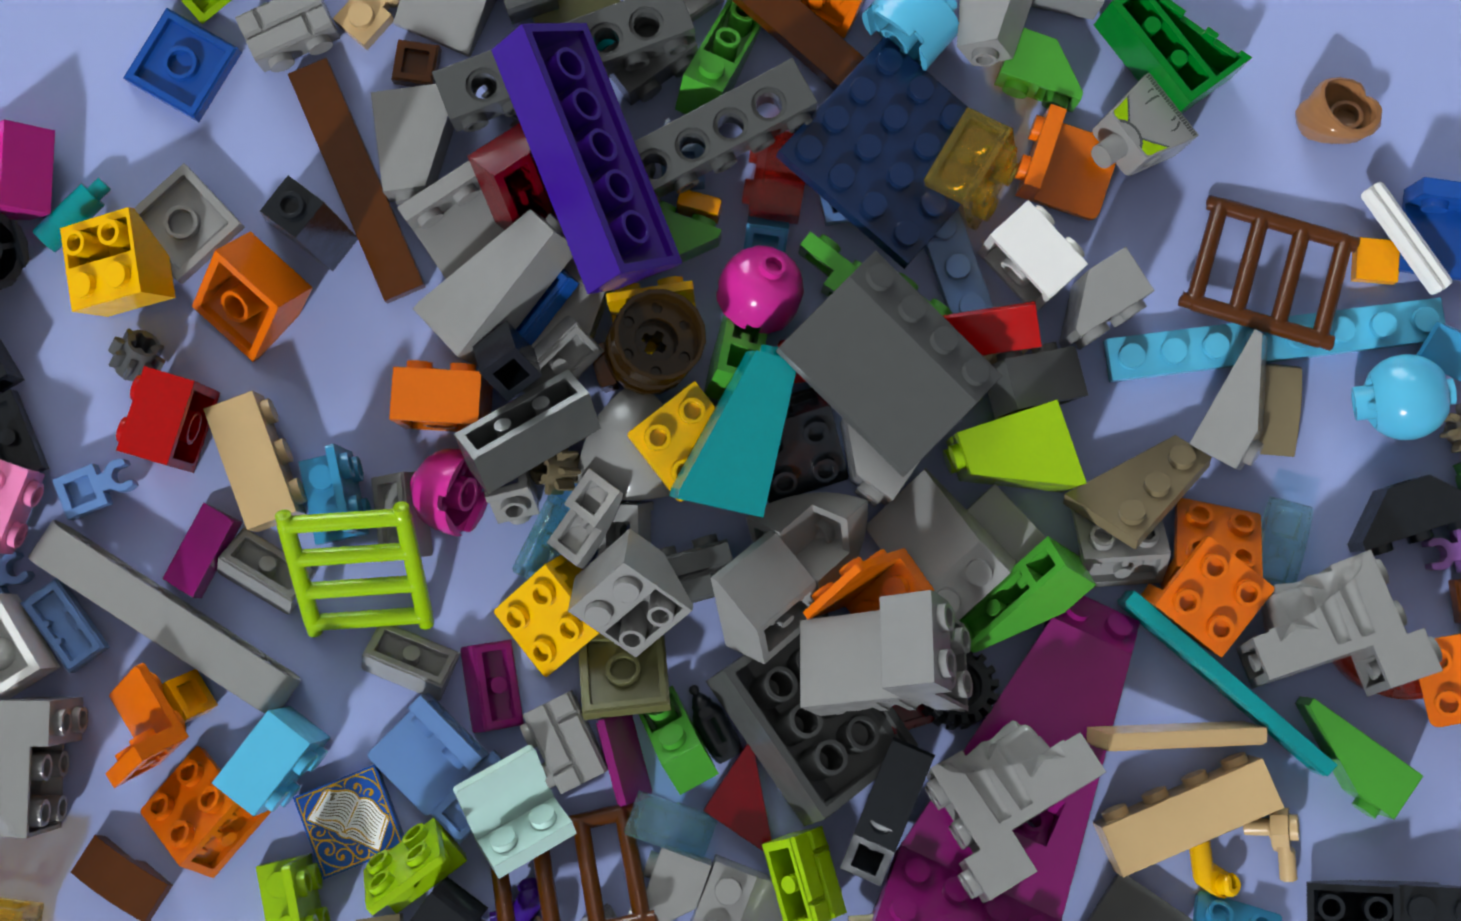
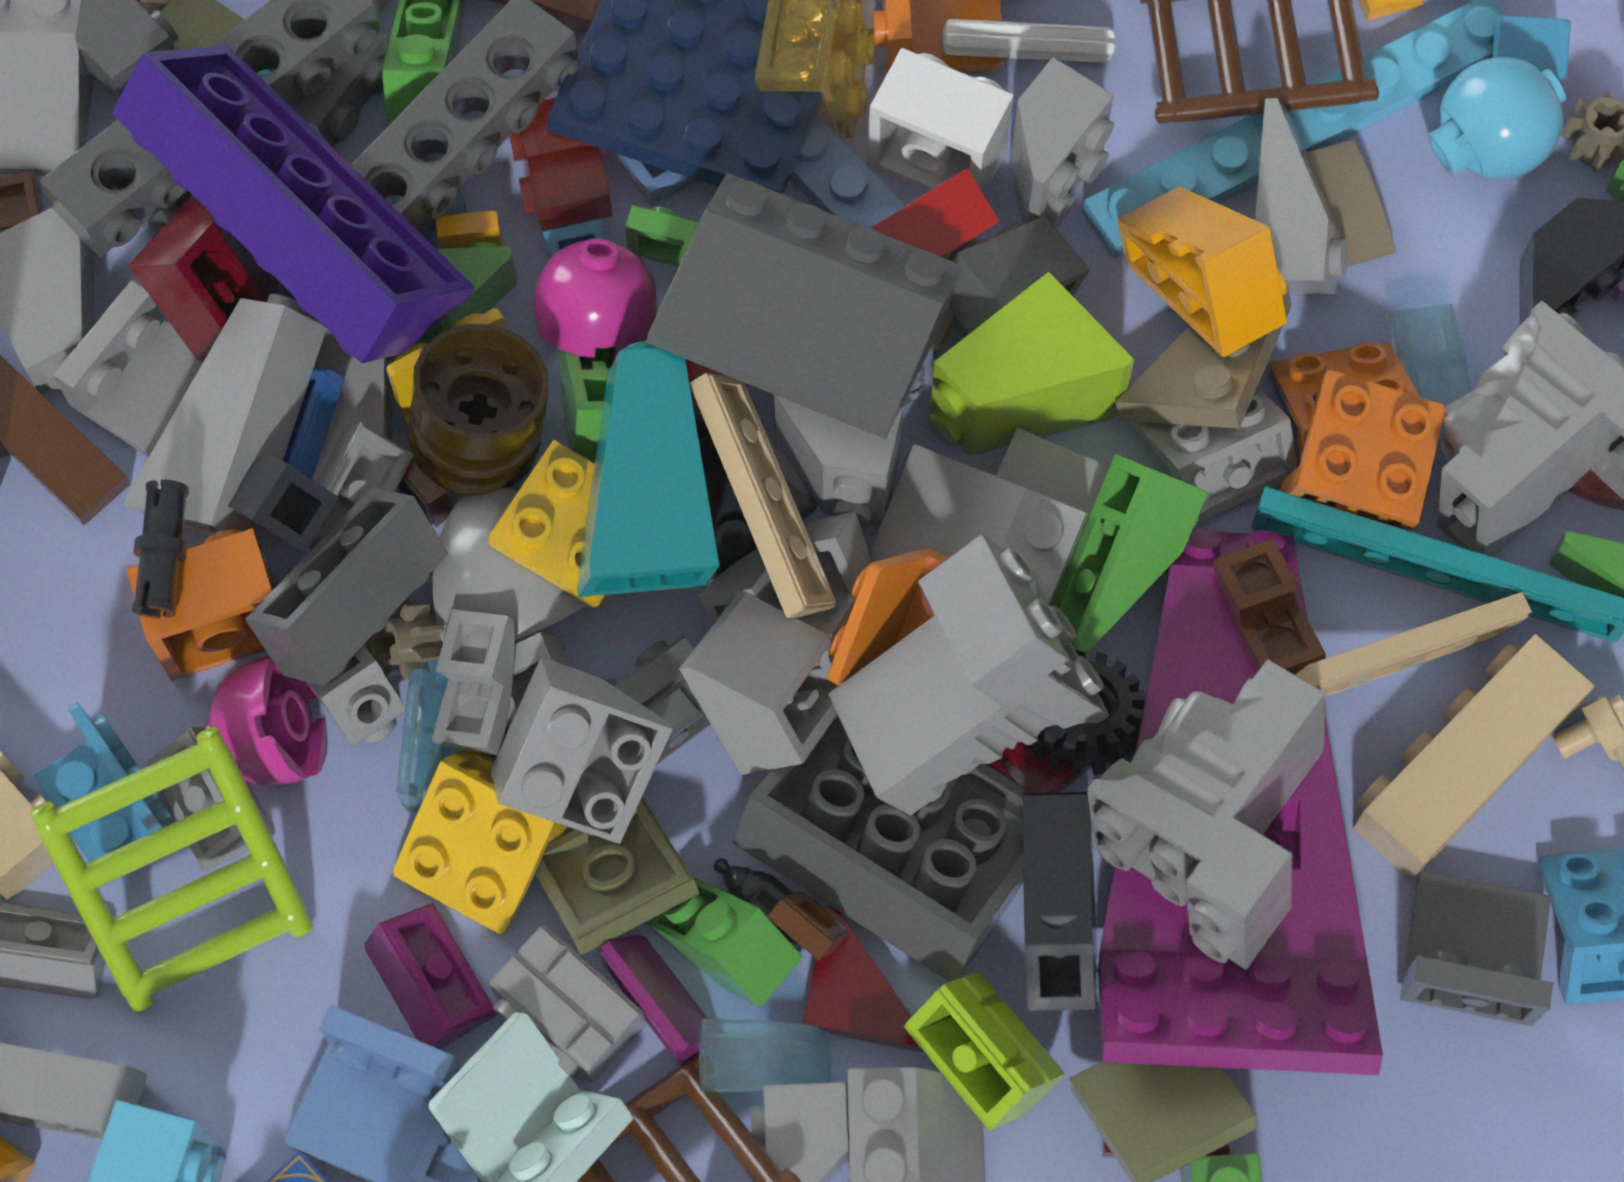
camera: 20 degrees left, 15 degrees down
(409, 660) = (293, 988): light grey slope -> none
(417, 366) = (160, 549): none -> black pin
(729, 758) = (808, 924): none -> reddish brown tile
(811, 476) = (763, 495): none -> tan tile
(1099, 677) = (1267, 608): none -> reddish brown slope
(1118, 211) = (1027, 40): none -> white axle
(1163, 428) = (1207, 266): none -> light orange wedge
(1211, 876) = (1540, 829): yellow arm -> none

